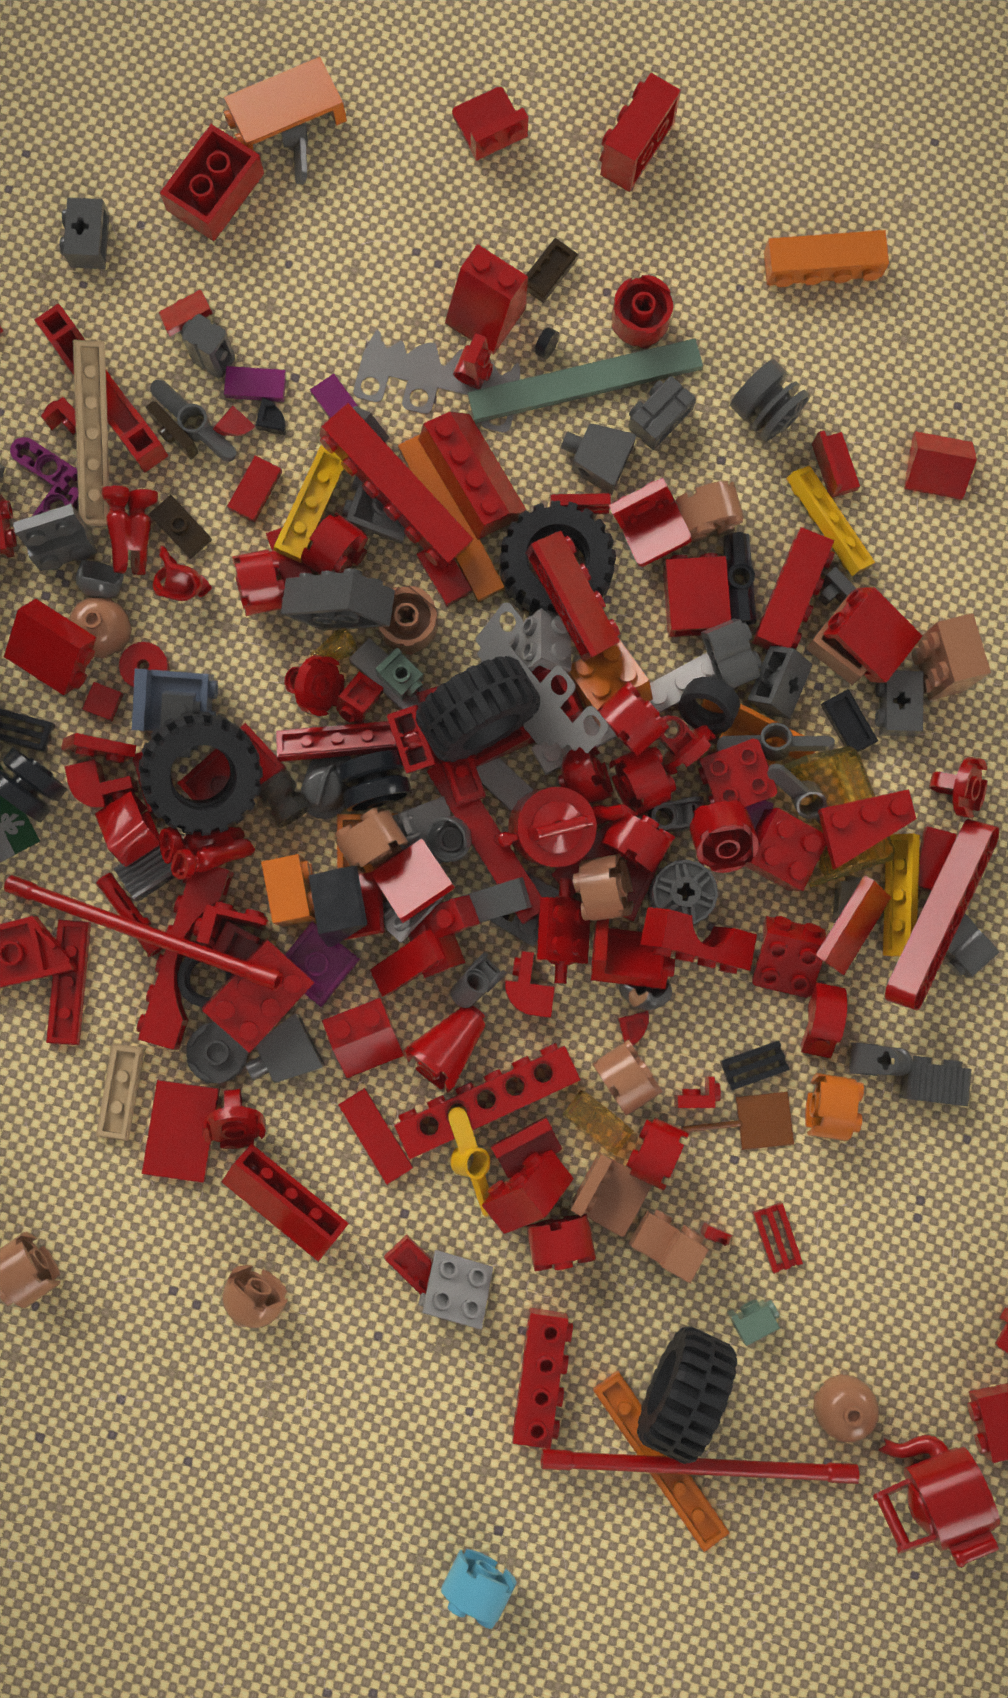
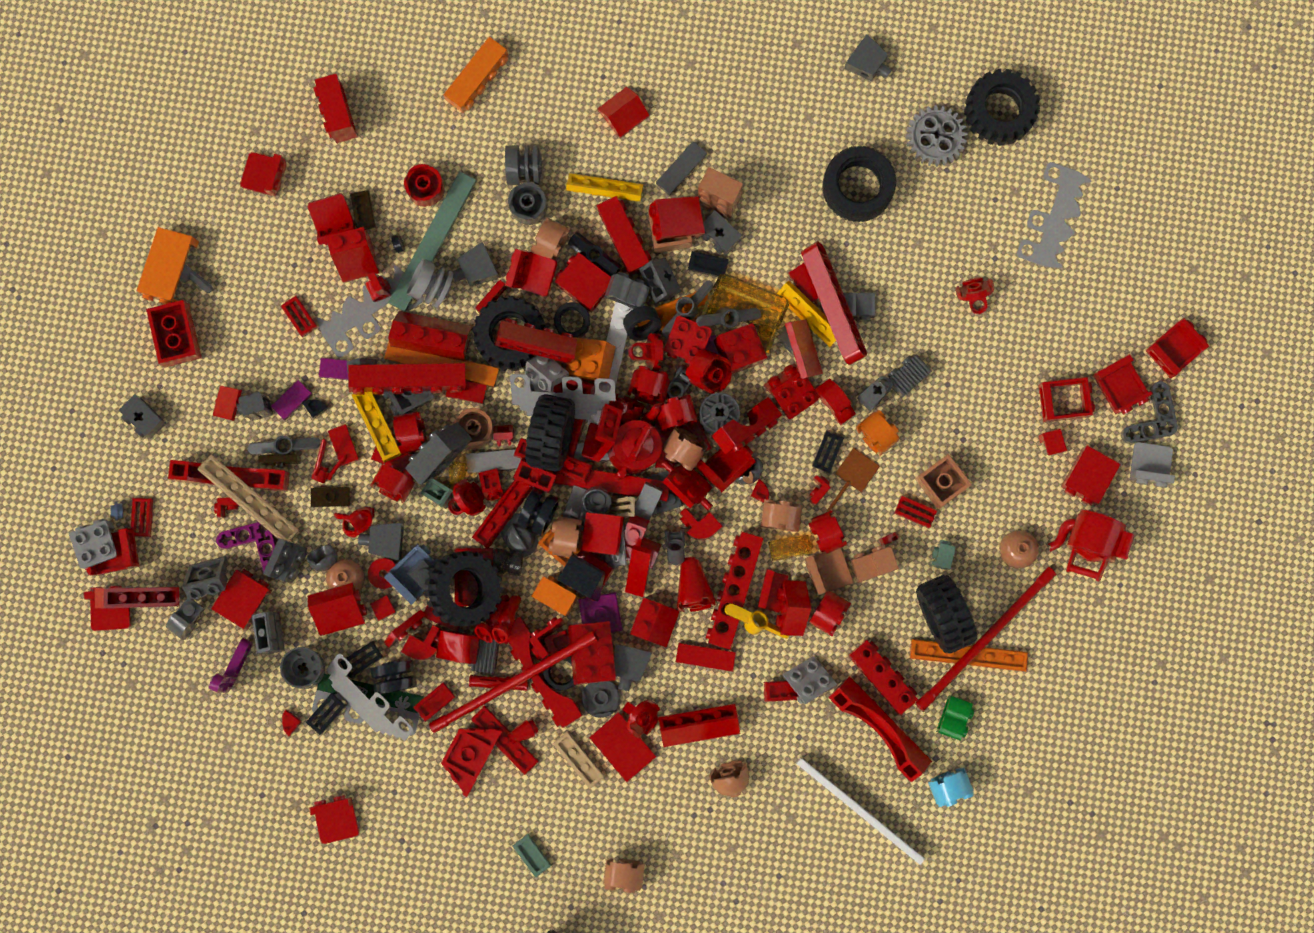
camera: 40 degrees left, 0 degrees up
(43, 859) = (434, 702): none -> red tile
(95, 995) = (524, 731): none -> red cone
(129, 530) = (310, 522): red piece -> none
(182, 633) = (384, 540): none -> dark grey torso
(198, 488) = (321, 472): none -> red plant
(233, 424) = (302, 427): red tile -> none
(292, 645) = (437, 493): none -> sand green slope
(351, 1496) = (860, 811): none -> white tile
(355, 330) = (307, 328): none -> red tile
(401, 687) = (492, 460): sand green brick -> none
(432, 658) = (503, 432): none -> red tile
(463, 873) = (618, 508): none -> tan tile
(470, 1495) = (907, 755): none -> red arch
(510, 234) = (330, 216): none -> red bracket
(532, 416) = (432, 284): none -> light grey wheel
(534, 775) = (602, 436): none -> red panel
(568, 1513) = (955, 717): none -> green brick
(633, 719) = (618, 365): red brick -> none
(658, 611) = (572, 306): none -> black tyre
(661, 412) = (481, 219): dark grey brick -> none
(734, 433) = (522, 194): none -> dark grey brick
(835, 464) = (579, 160): red panel -> none
(836, 587) = (638, 213): dark grey tile -> none
(845, 1241) = (943, 481): none -> nougat brick
(863, 823) = (761, 301): red wing -> none
(934, 590) = (681, 168): none -> dark grey tile
(965, 786) = (786, 238): red tile -> none

